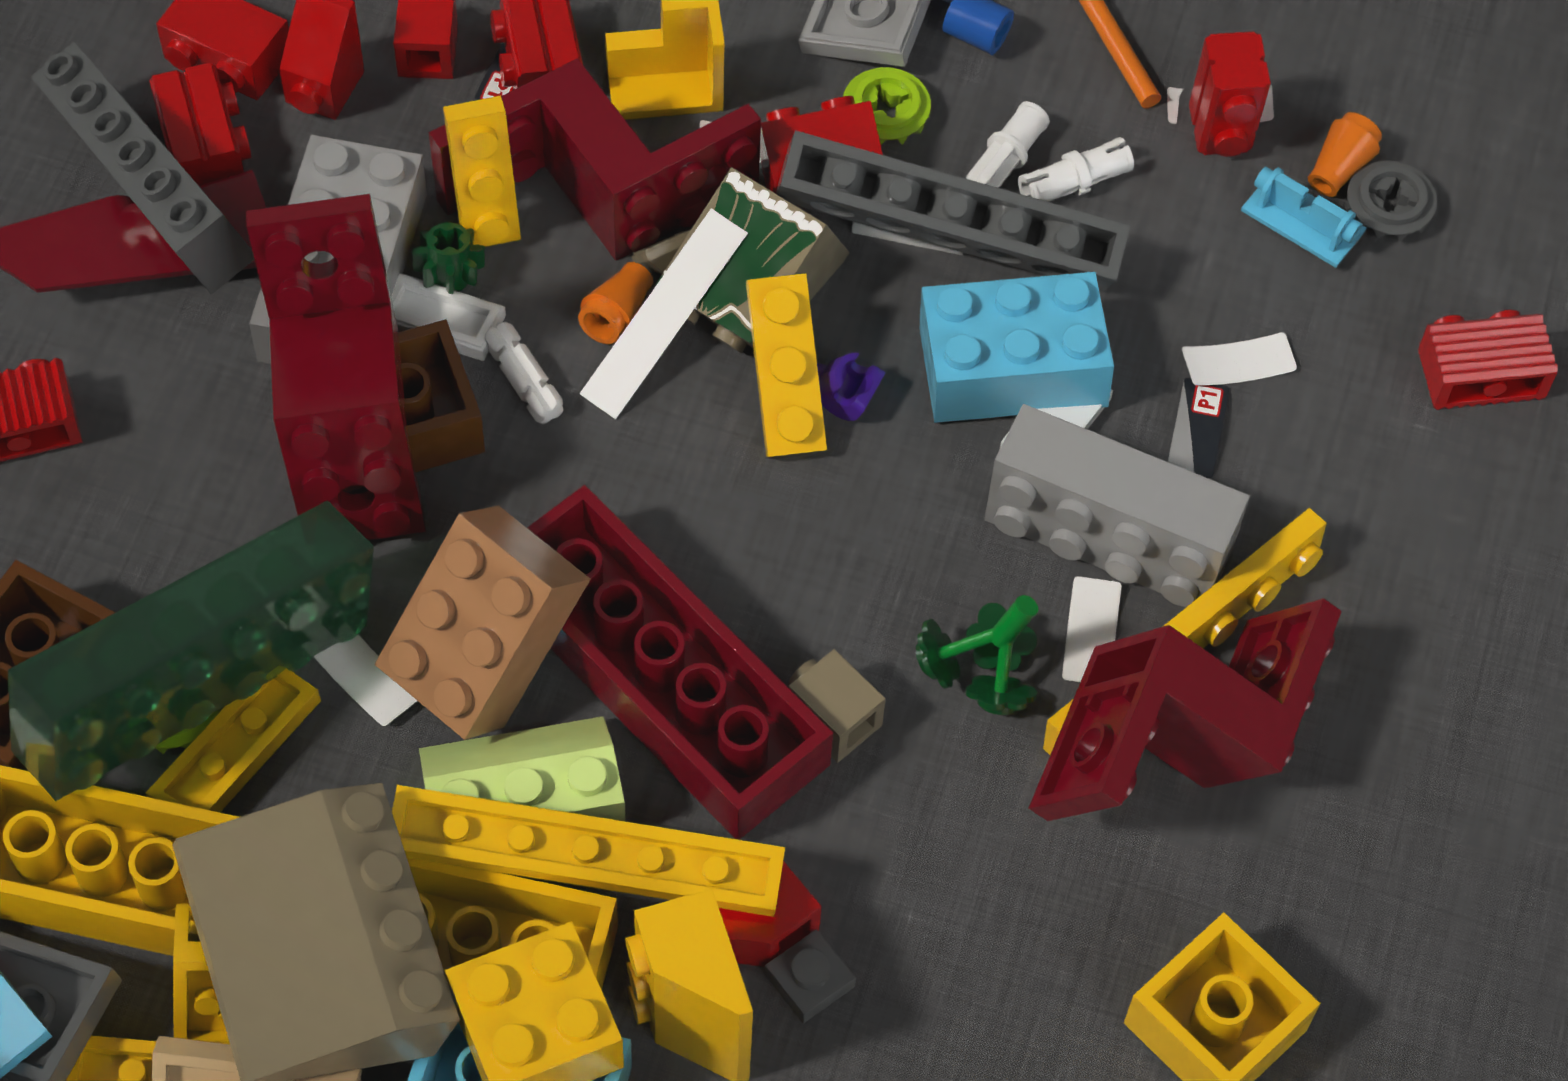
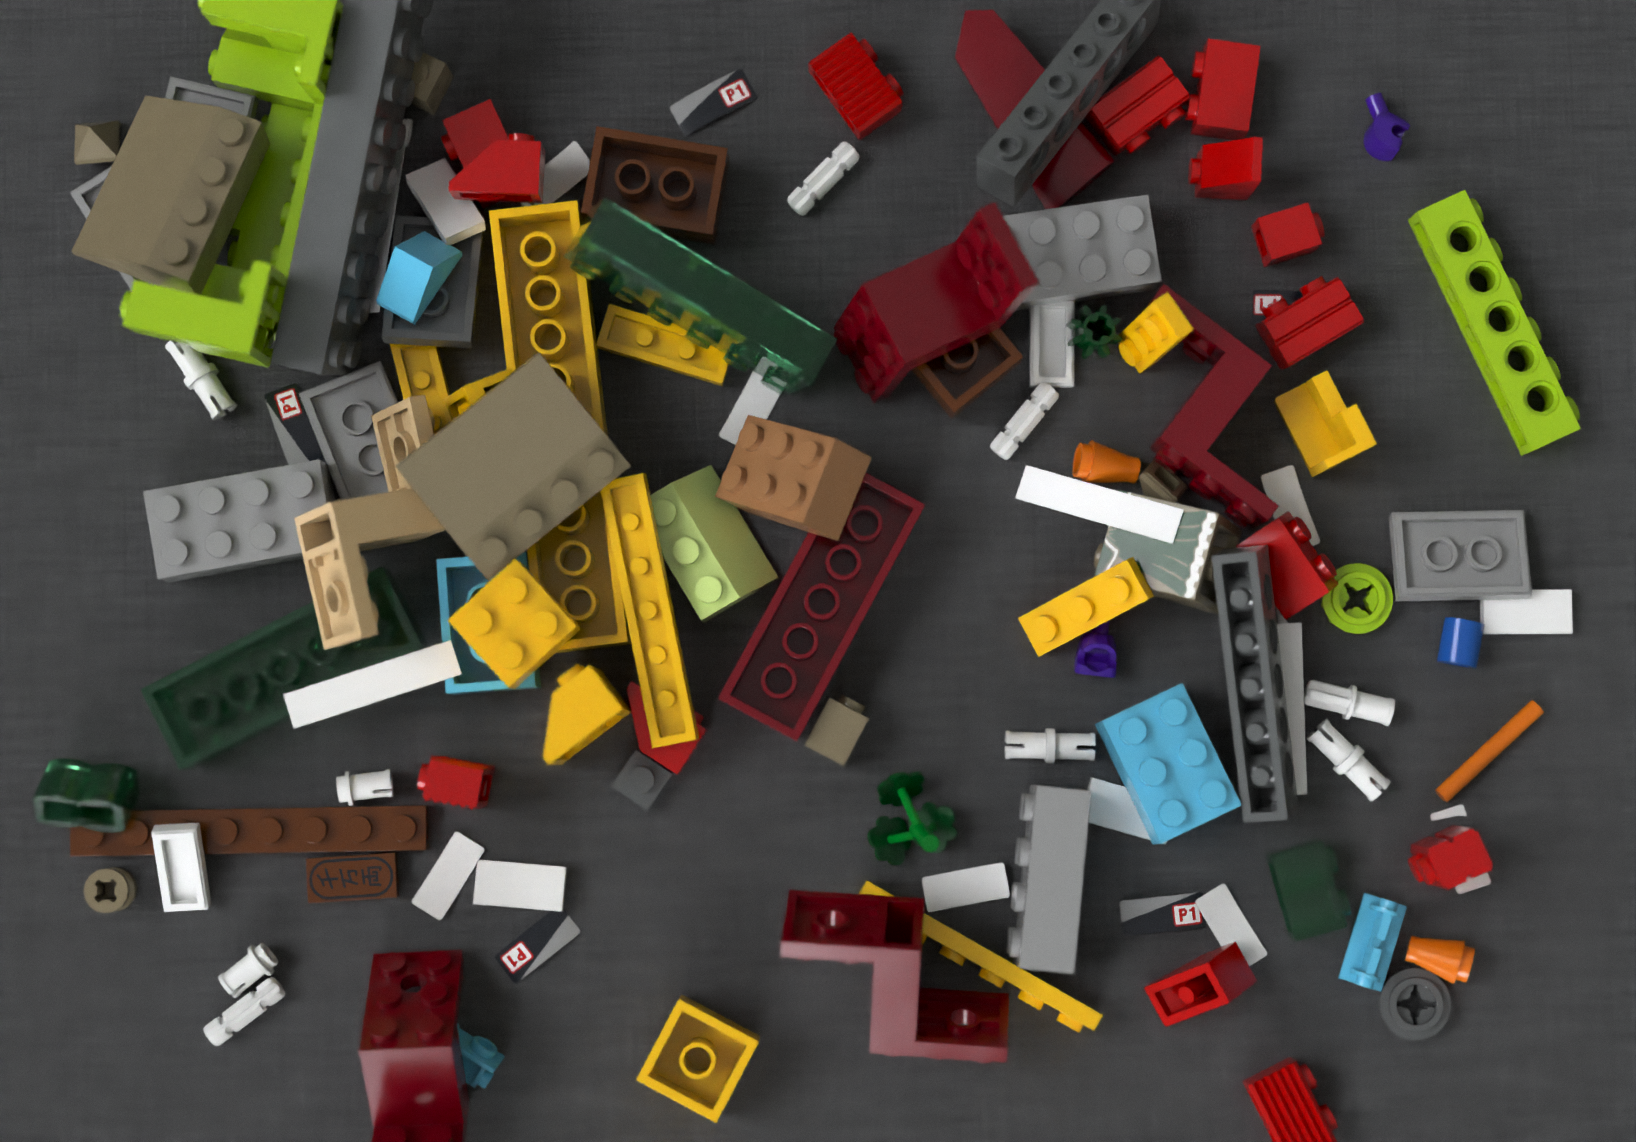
camera: 75 degrees right, 25 degrees up
(110, 493) = (823, 178): none -> white axle
(943, 475) = (1049, 745): none -> white pin
(1219, 259) = (1307, 889): none -> clear green brick
(1302, 404) = (1201, 984): none -> red slope

